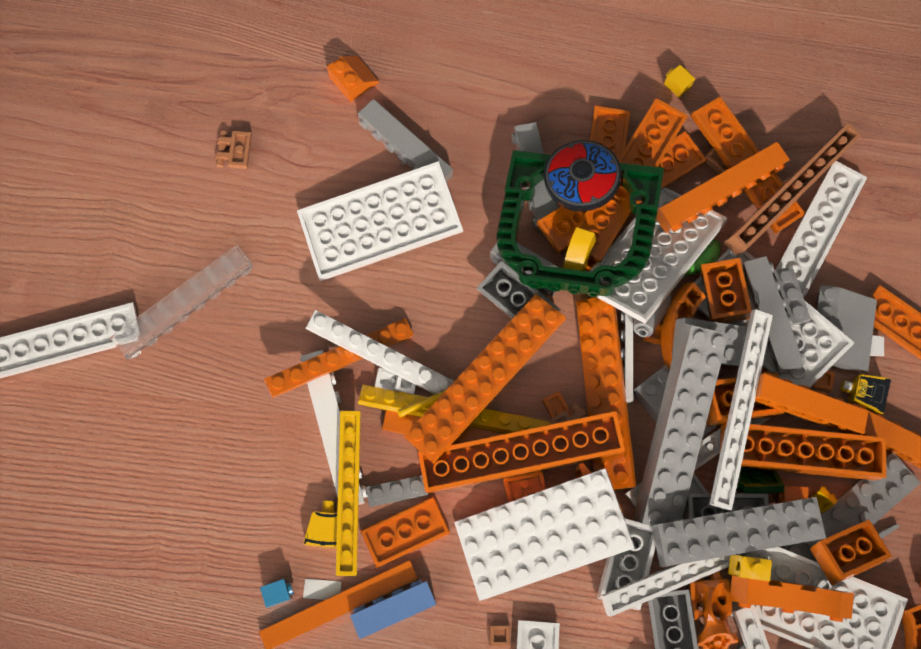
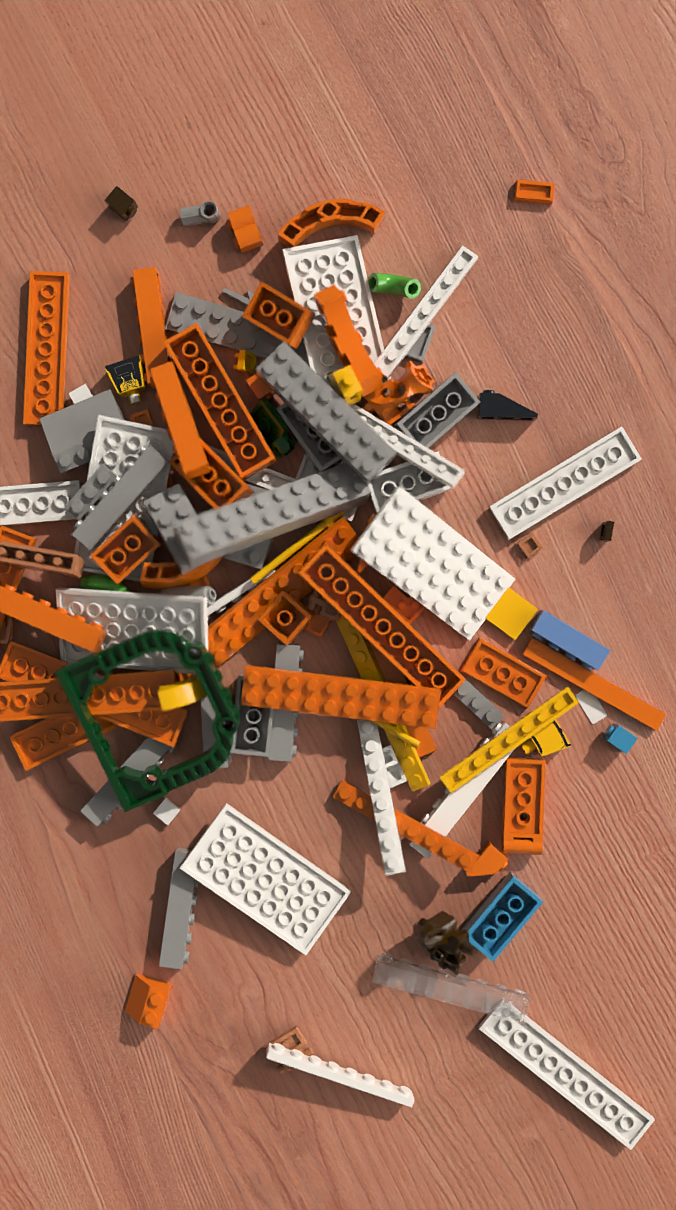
camera: 120 degrees left, 15 degrees up
(184, 172) = (332, 1071): none -> white plate
(207, 383) = (502, 916): none -> dark azure brick
(224, 321) = (444, 942): none -> dark brown piece
(259, 405) = (489, 861): none -> orange slope
(290, 474) = (523, 795): none -> orange hinge
(451, 575) = (511, 613): none -> yellow tile
(487, 186) = (166, 811): none -> white tile
(493, 320) = (283, 724): none -> light grey brick
(580, 381) = (286, 617): none -> orange slope
(582, 175) = (110, 737): dish -> none
(639, 469) = (326, 523): none -> yellow bar
(741, 410) = (224, 473): white plate -> none

